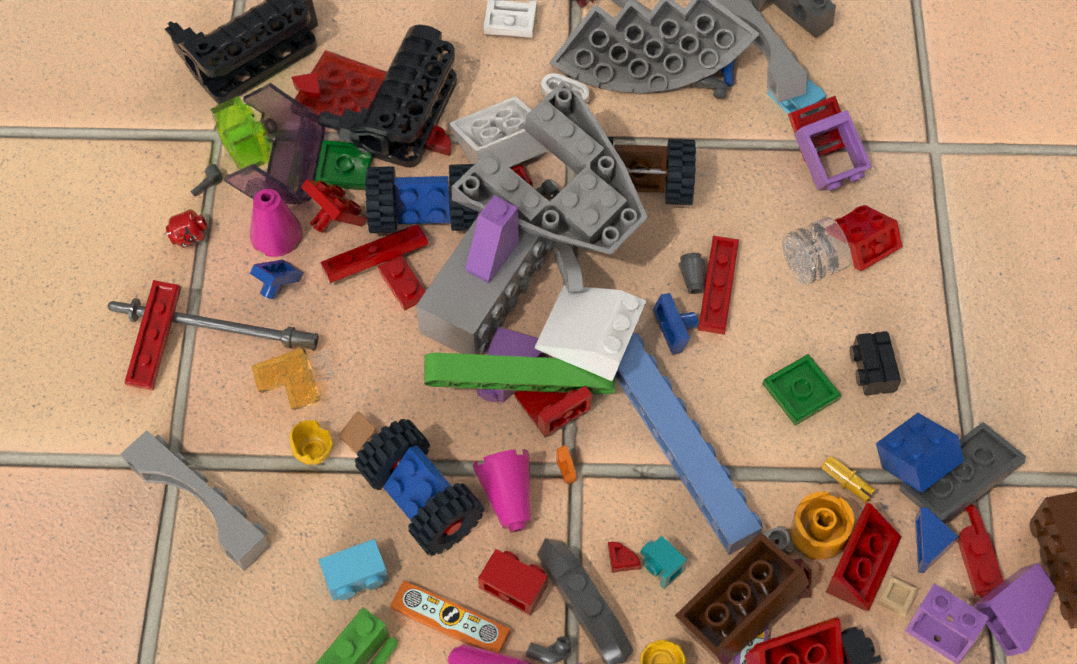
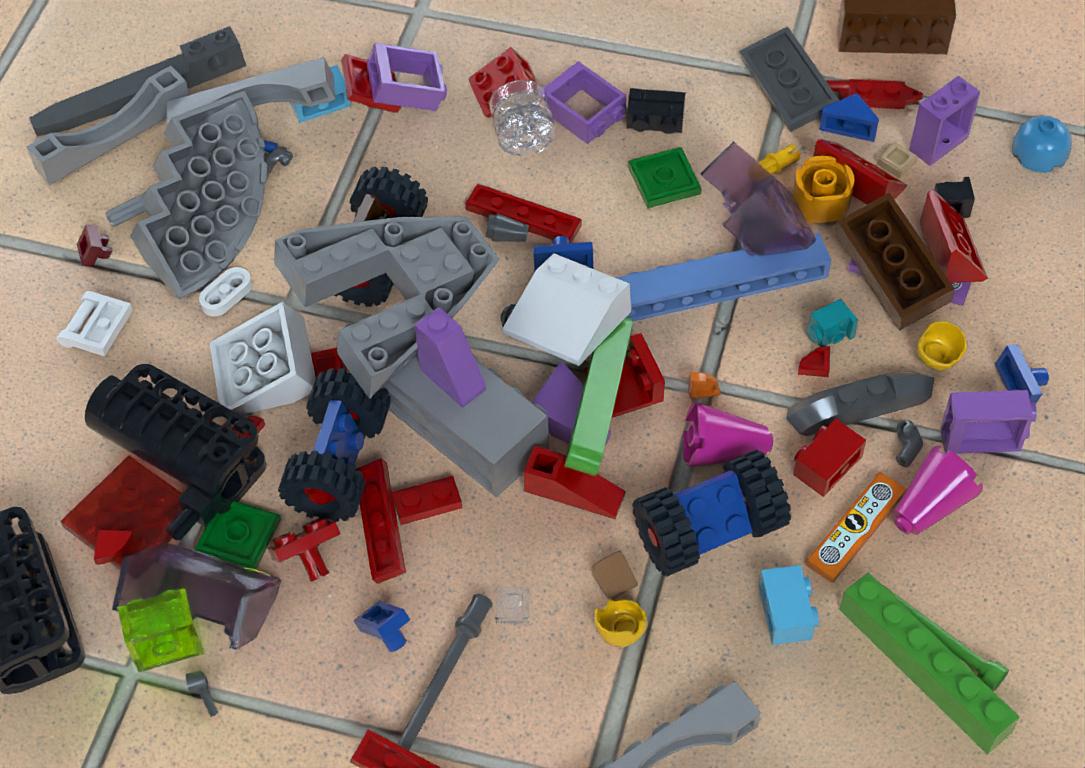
camera: 75 degrees left, 5 degrees down
(186, 228) = (273, 720): red head -> none
(273, 225) = (307, 618): dark pink cone -> none
(289, 370) = (519, 627): clear yellow plate -> none
(432, 400) = (550, 479): none -> red slope
(568, 267) = (505, 308): light grey beam -> none
(767, 487) = (760, 205): none -> clear purple windscreen
(780, 534) = (827, 230): light grey plate -> none
(871, 279) = (582, 78): none -> medium lavender window
(920, 452) = (766, 97): blue brick -> none
(1017, 608) = (924, 70): medium lavender slope -> none

